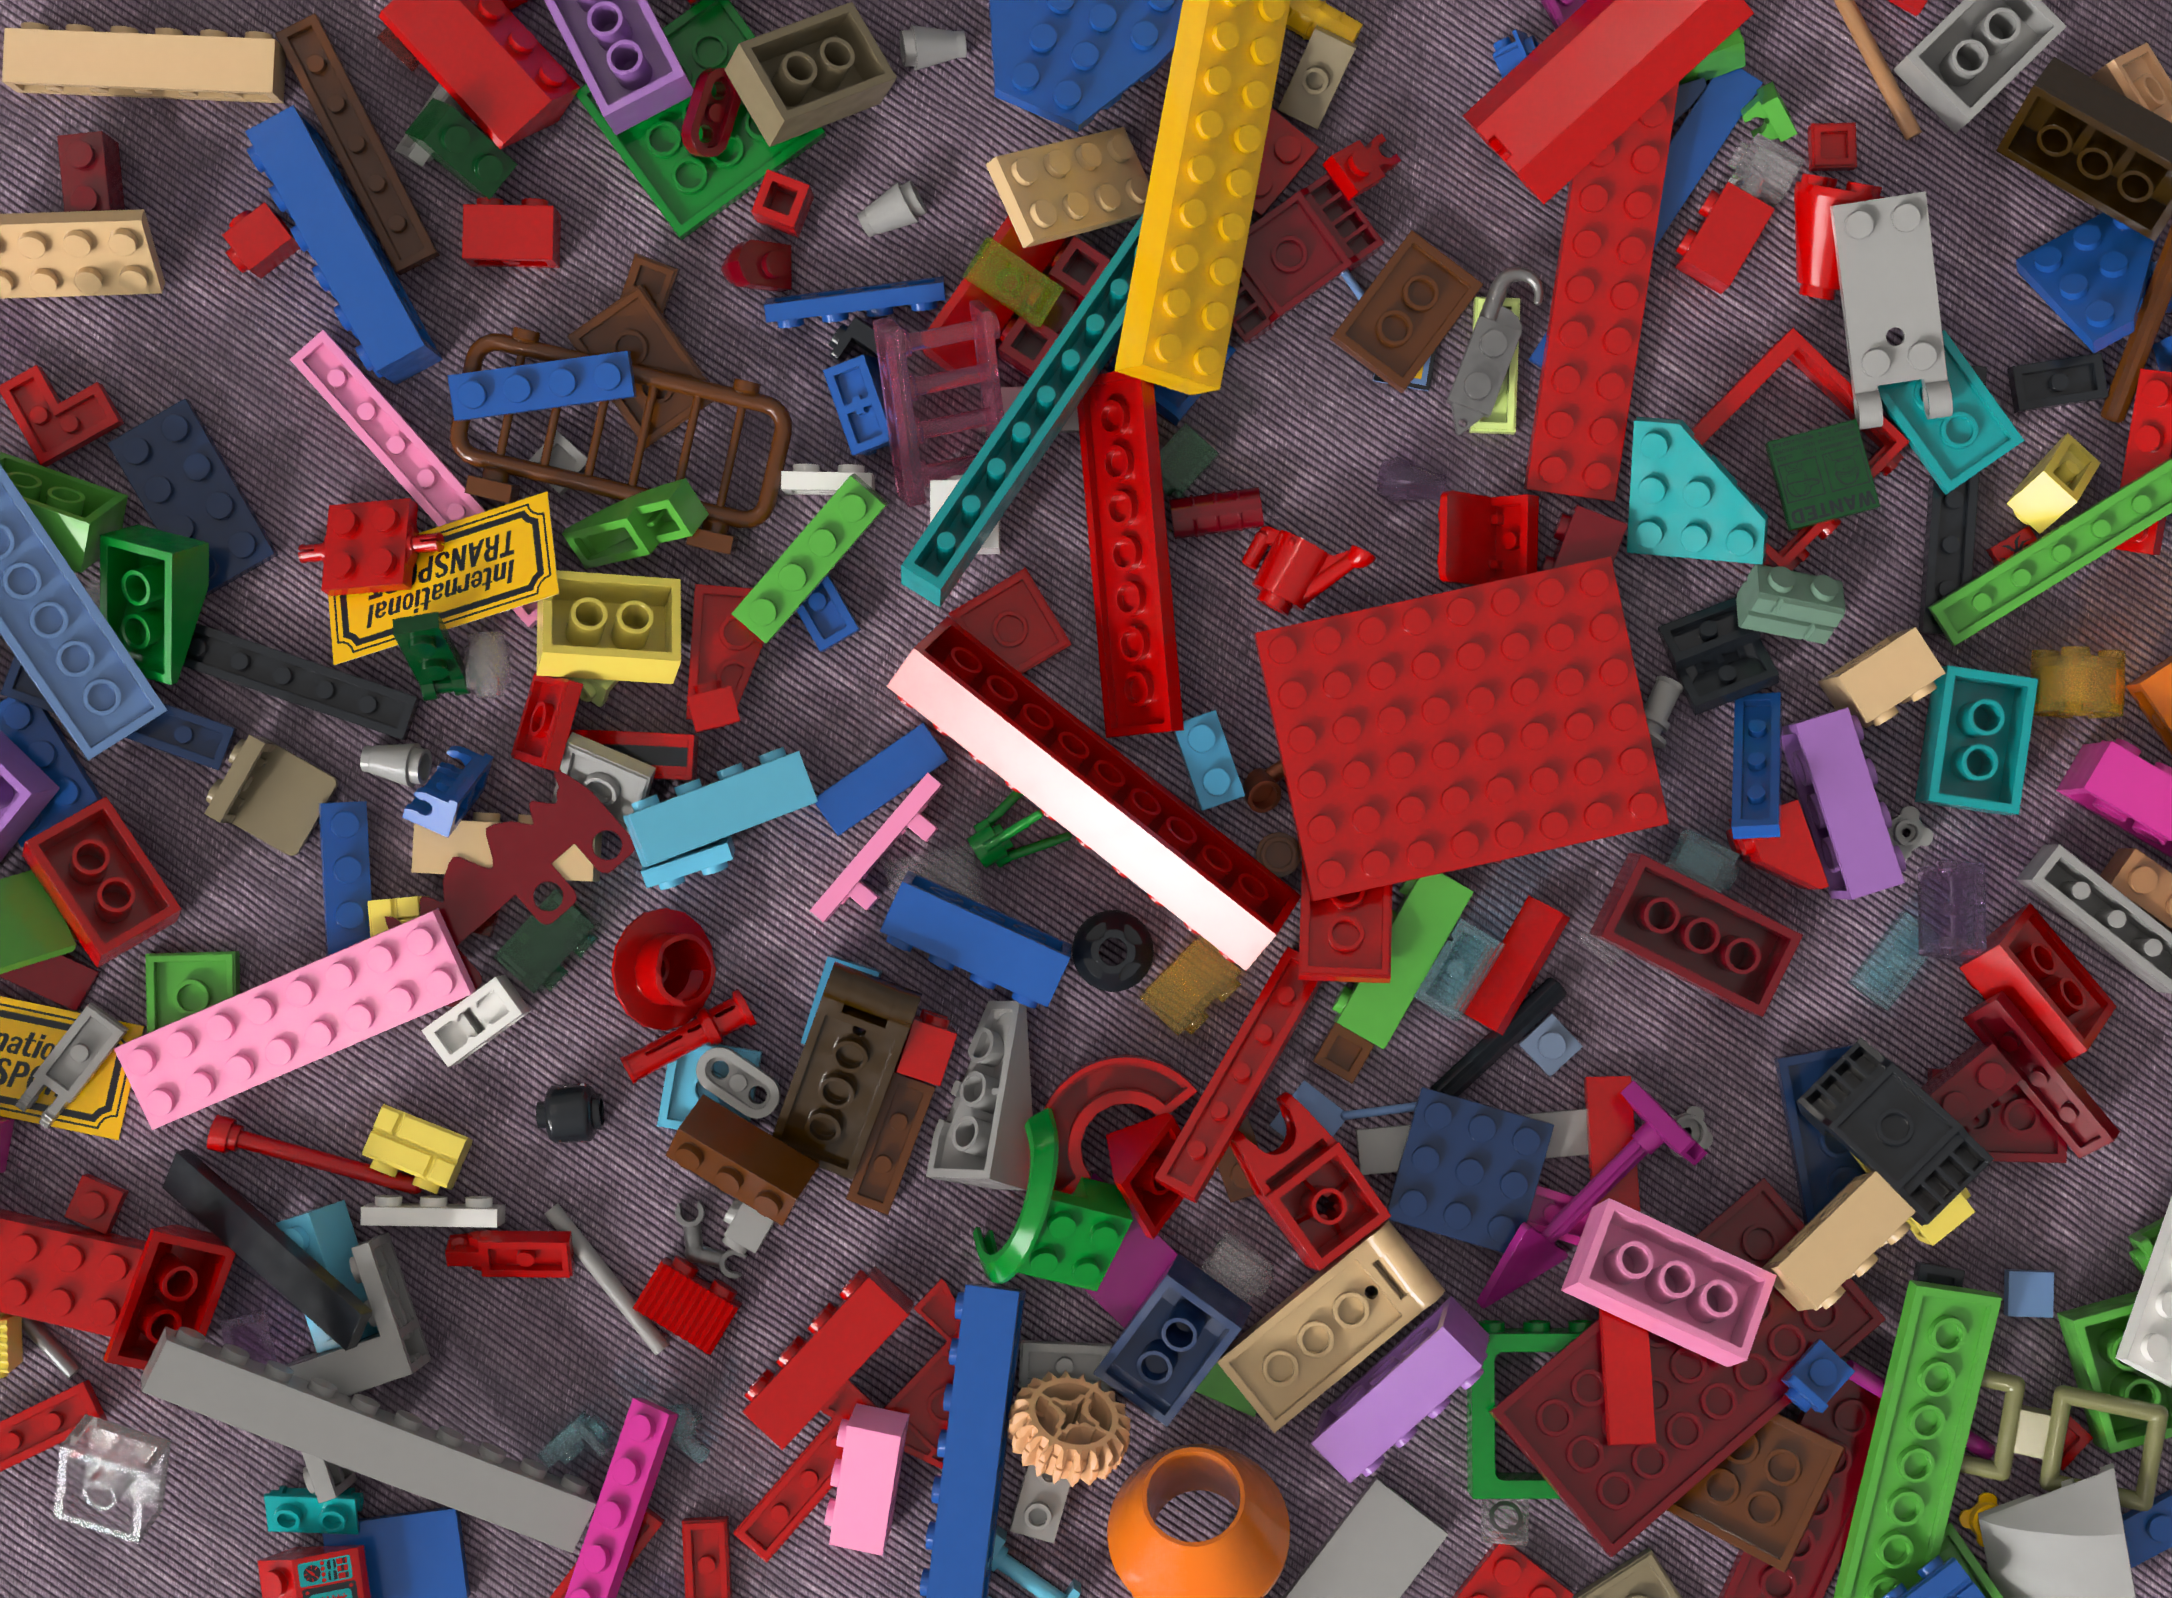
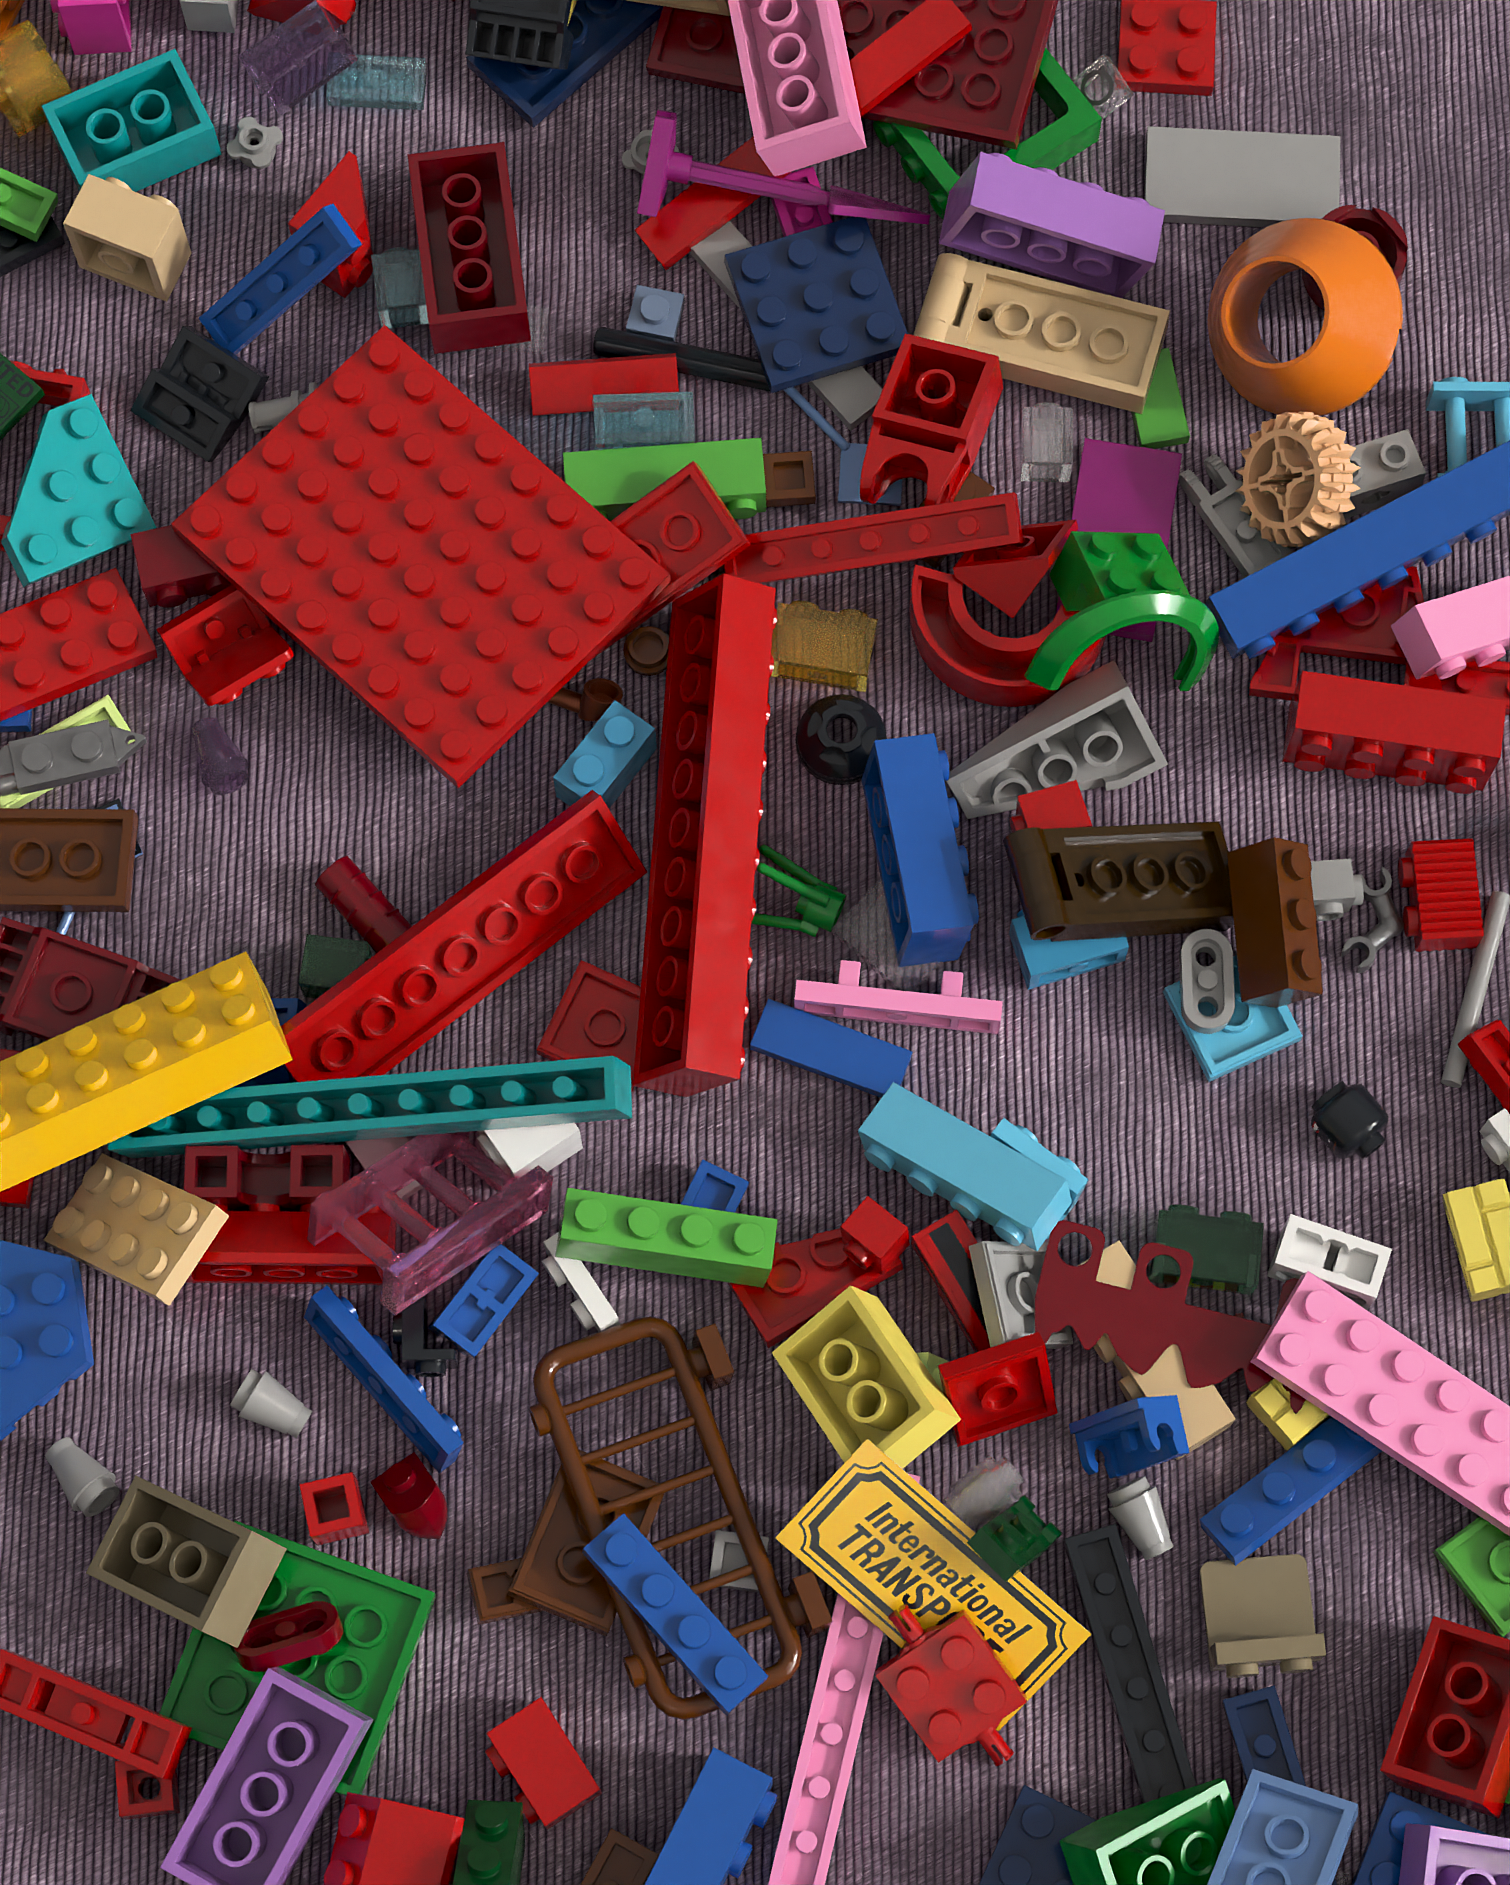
camera: 130 degrees left, 15 degrees down
(637, 525) = (748, 1433): bright green slope -> none
(663, 969) = (1152, 1117): red helmet -> none
(708, 1027) = (1172, 1052): red pin -> none
(890, 1143) = (1189, 801): reddish brown plate -> none
(1013, 282) = (268, 1215): clear neon green plate -> none
(1173, 1340) = (1151, 447): dark blue slope -> none
(1296, 569) = (371, 798): red piece -> none
(1790, 603) = (111, 354): sand green brick -> none
(1842, 805) = (254, 202): medium lavender brick -> none

